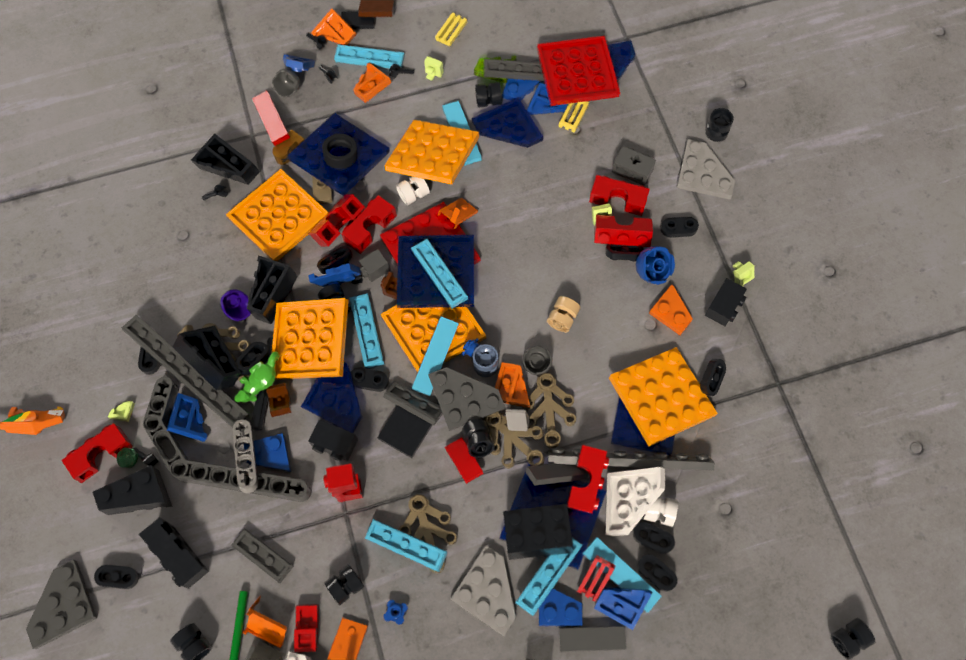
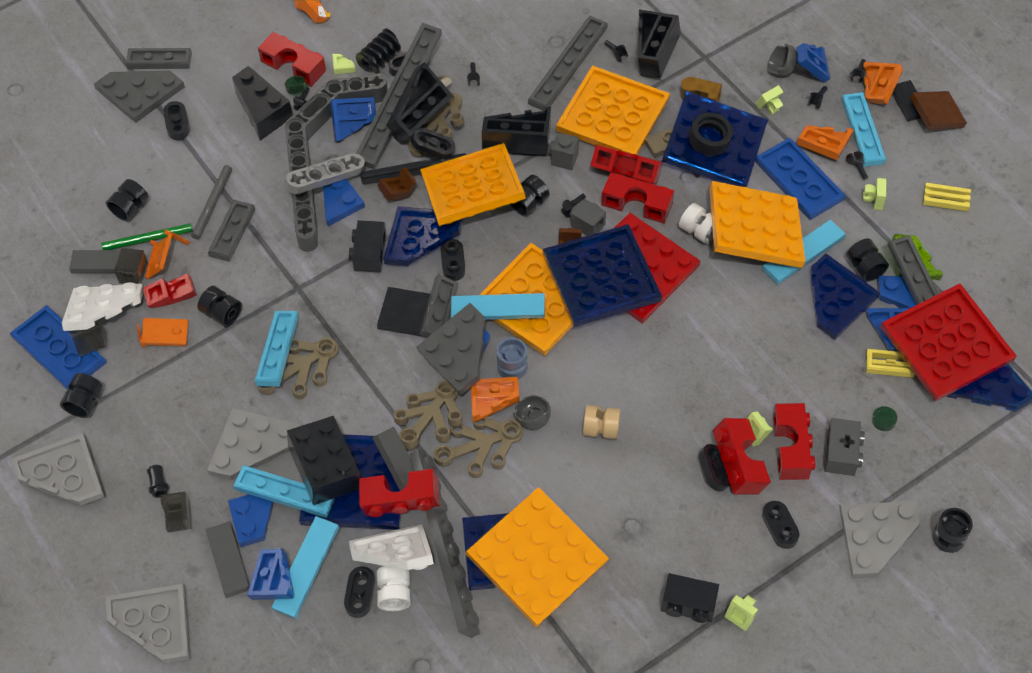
camera: 70 degrees right, 10 degrees down
(30, 578) = (158, 58): none -> dark grey tile
(127, 375) = (378, 51): none -> black piece
(173, 553) = (211, 151): black wedge -> none
(188, 308) = (473, 75): none -> black hand
(211, 233) = (567, 63): none -> dark grey tile
(219, 563) = (211, 202): none -> dark grey bar
(235, 304) = (488, 106): dark purple hair -> none
(261, 378) = (412, 157): bright green animal -> none
(271, 118) = (729, 62): tile -> none
(302, 261) = (564, 151): none -> dark grey brick
(318, 104) = (771, 100): none -> yellowish green tile
(335, 259) = (585, 183): black plate -> none
(336, 275) = (555, 182): blue wing -> none
(343, 482) = (318, 262): red arch -> none
(366, 331) = (509, 239): medium azure tile -> none
(395, 112) = (800, 178): none -> blue tile
(399, 617) = (205, 369): blue plate -> none
(439, 273) = (596, 276): medium azure tile -> none
(458, 211) = (692, 278): orange piece -> none
(465, 463) = (386, 377): red slope -> none
(470, 346) = (523, 335): blue plate -> none
(478, 438) = (415, 377): black wheel -> none
(517, 419) = (449, 407): light grey slope -> none
(589, 592) = (294, 535): tile -> none
(616, 134) = (884, 418): none -> clear green tile
(655, 264) = (705, 501): blue cylinder -> none
(658, 571) = (319, 607): black plate -> none
(672, 311) = (658, 543): orange wing -> none
(713, 377) = (583, 611): black plate -> none

